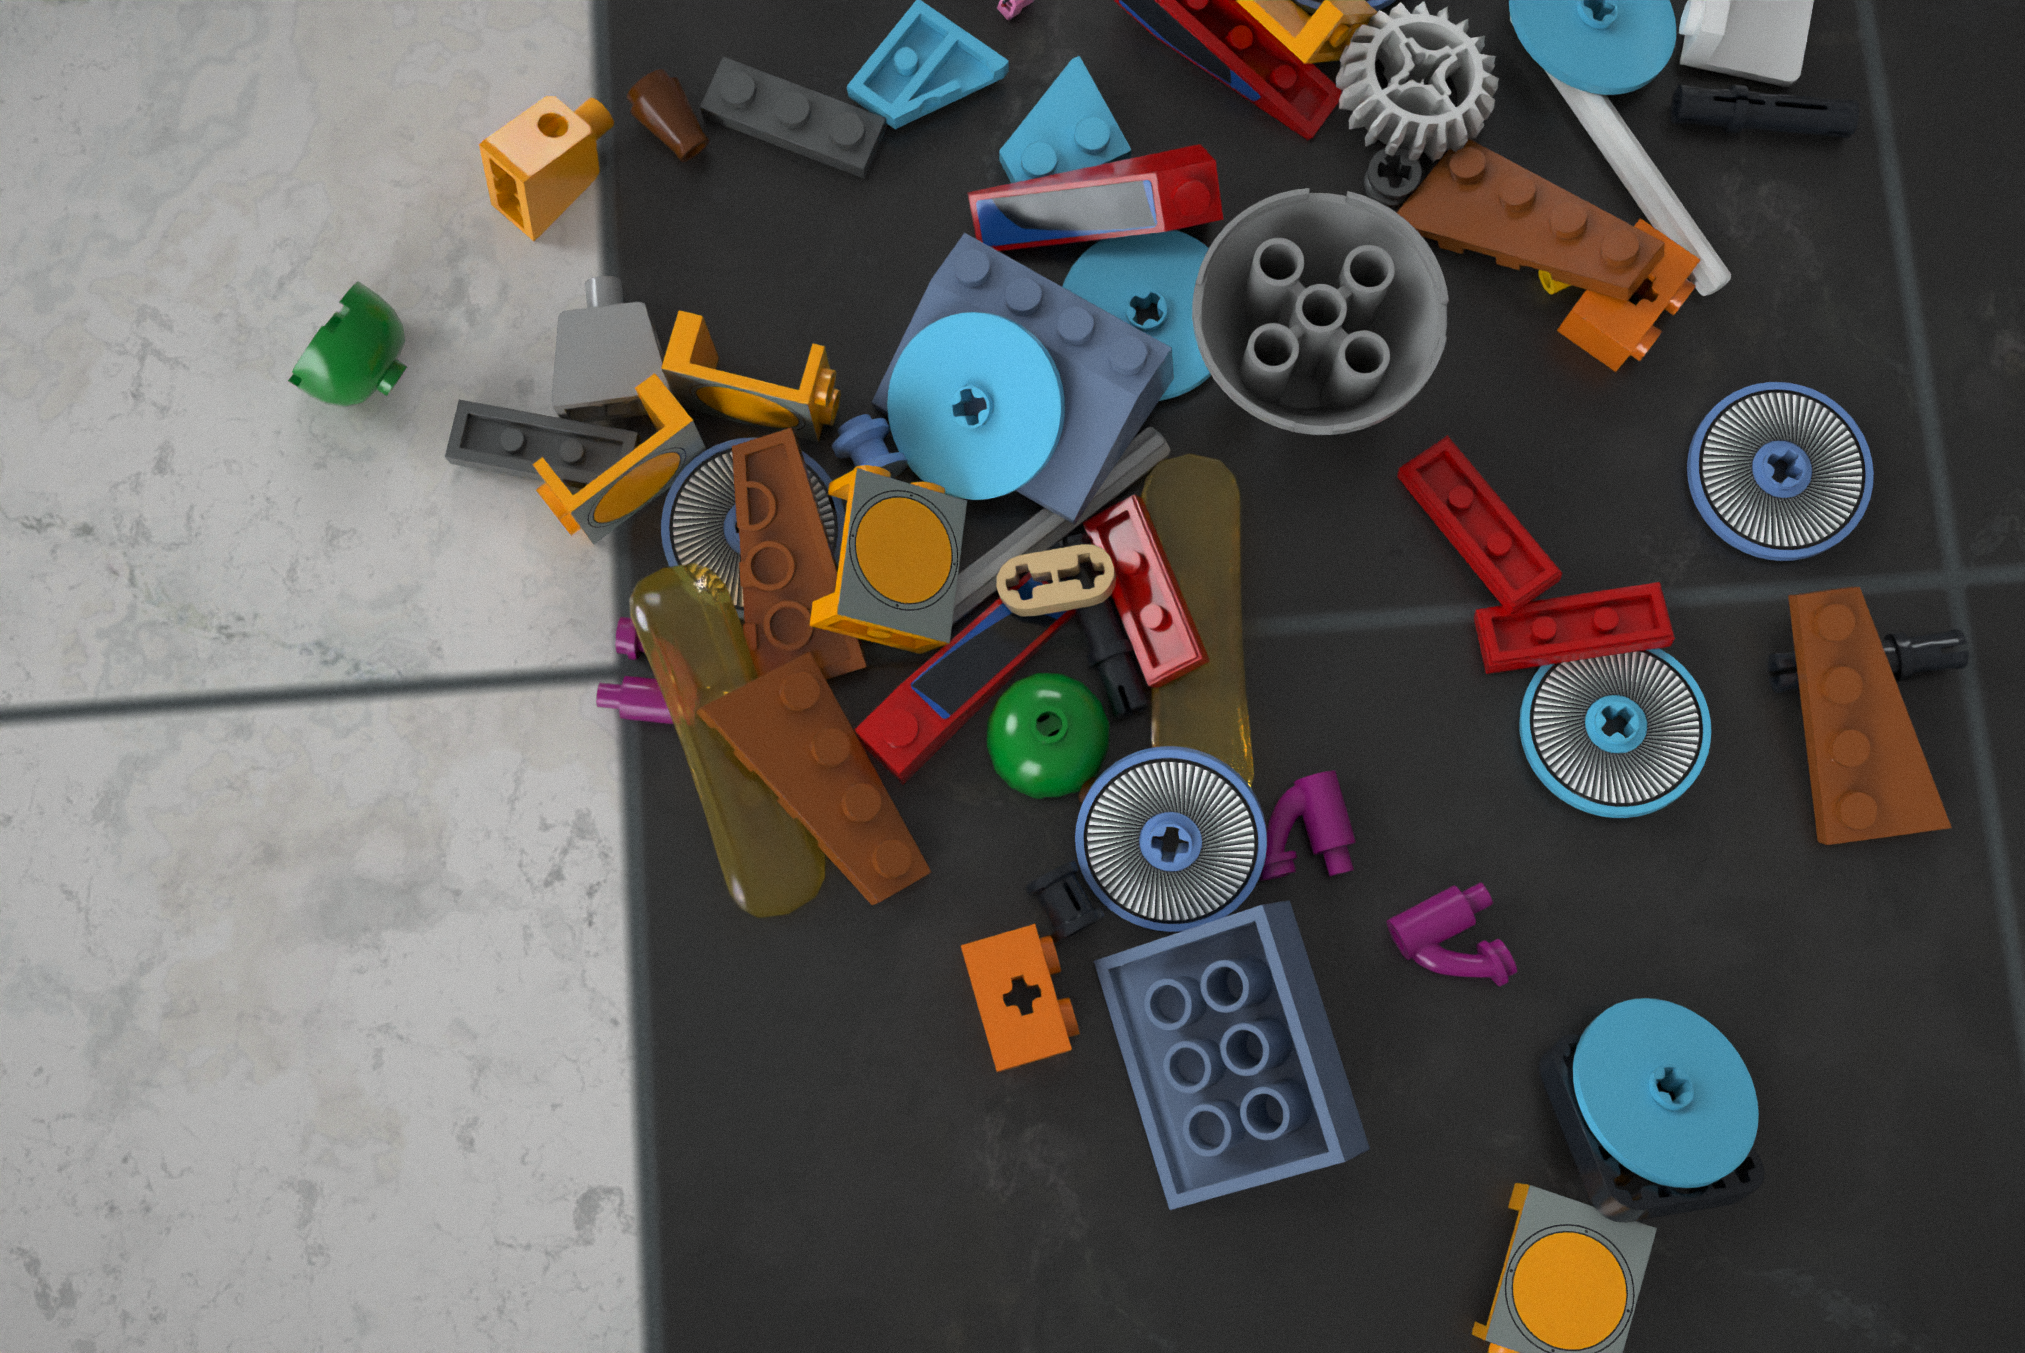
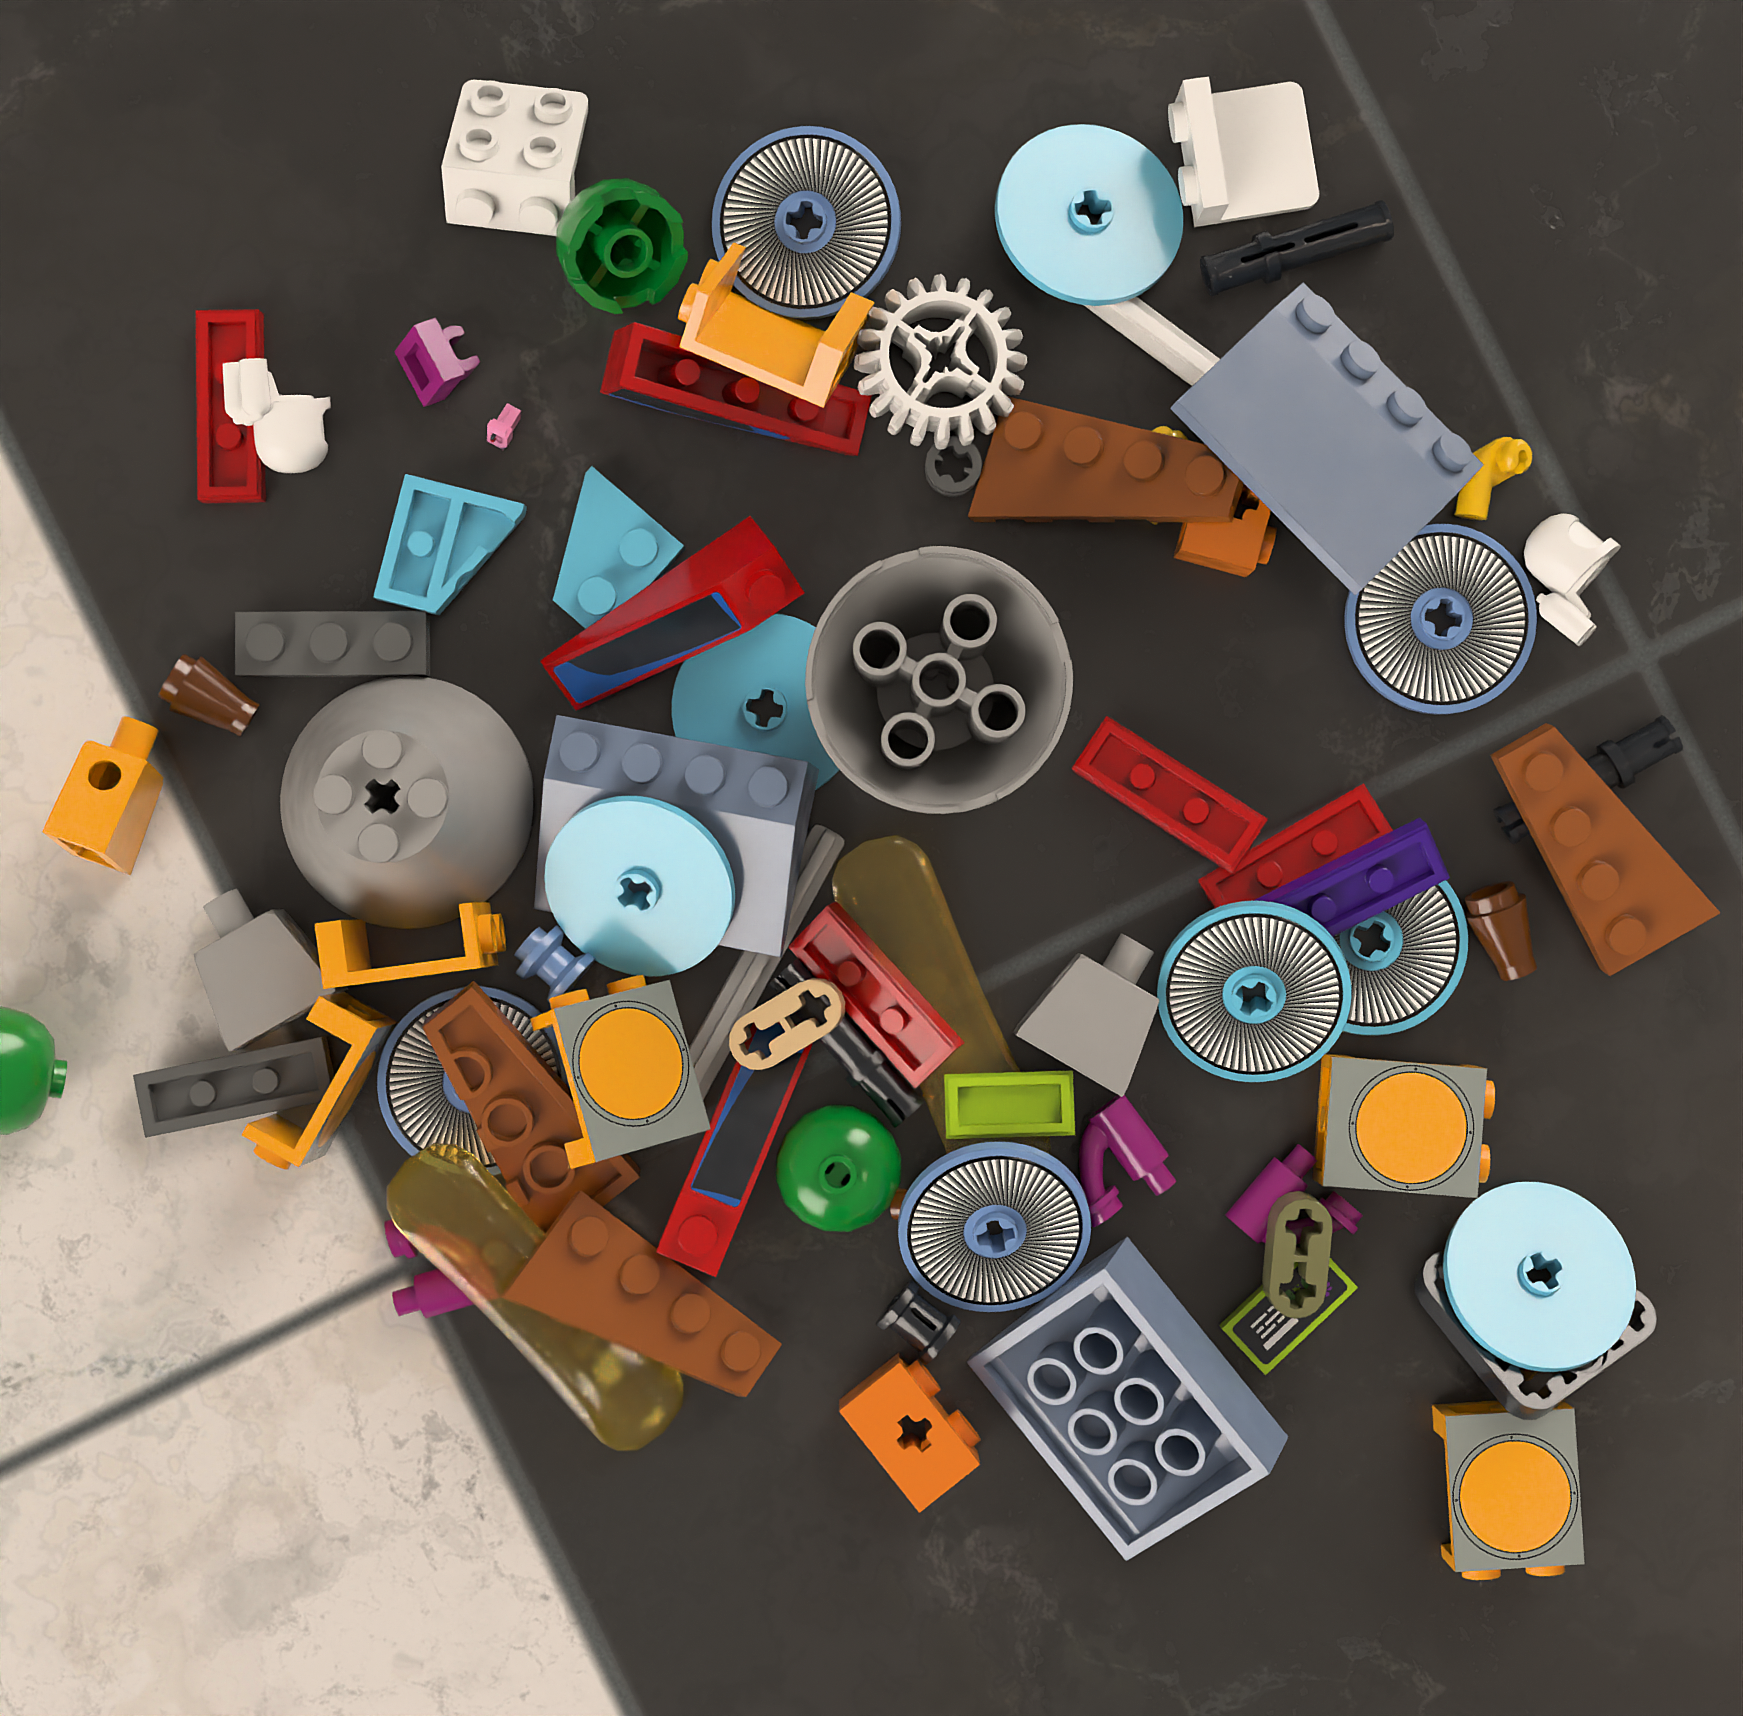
camera: 25 degrees left, 10 degrees up
(796, 262) = (459, 800): none -> light grey cone
(1235, 734) = (1009, 1104): none -> lime tile
(1335, 689) = (1096, 1015): none -> light grey torso
(1414, 1031) = (1269, 1335): none -> tile
(1457, 985) = (1311, 1256): none -> olive beam
(1488, 774) = (1243, 946): none -> piece
(1586, 899) = (1402, 1126): none -> panel
(1613, 667) = (1366, 879): none -> dark purple tile
(1742, 762) = (1503, 928): none -> reddish brown cone
(1743, 261) = (1328, 437): none -> sand blue slope
(1867, 360) = (1501, 461): none -> yellow arm
(1915, 462) = (1566, 561): none -> white piece

